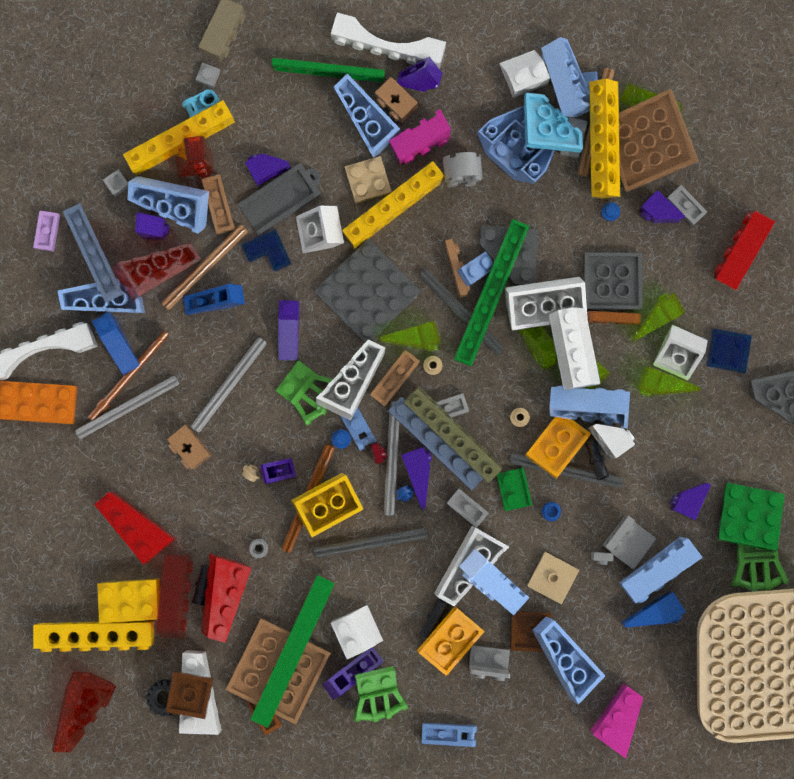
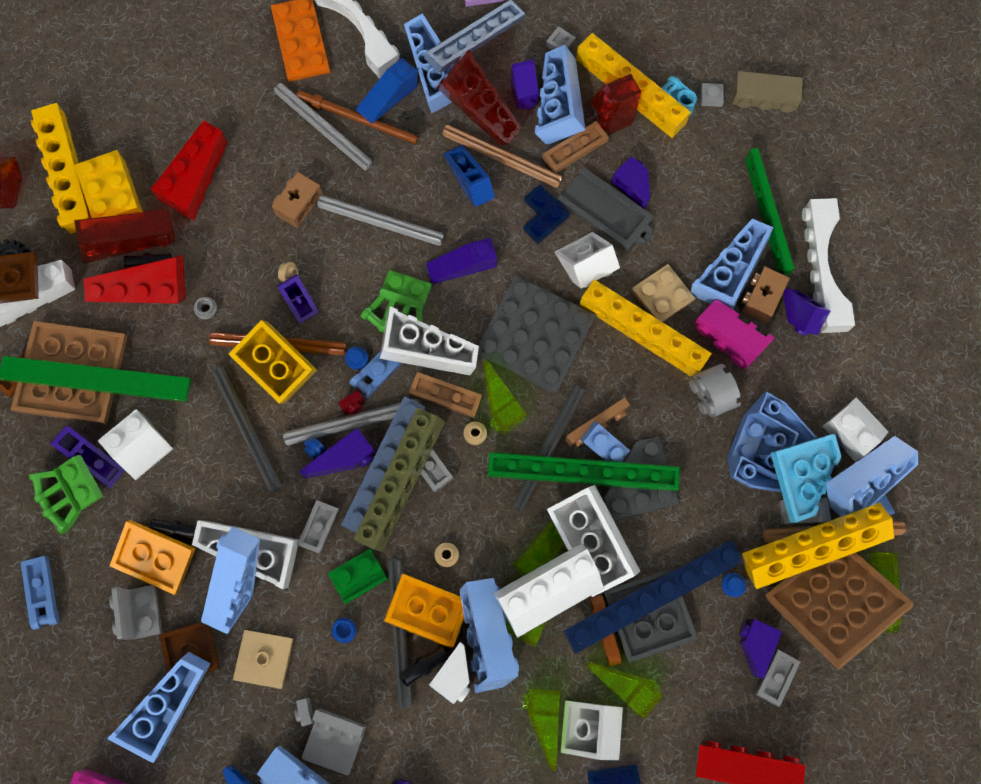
camera: 65 degrees right, 10 degrees down
(601, 273) = (652, 597): none -> dark blue plate

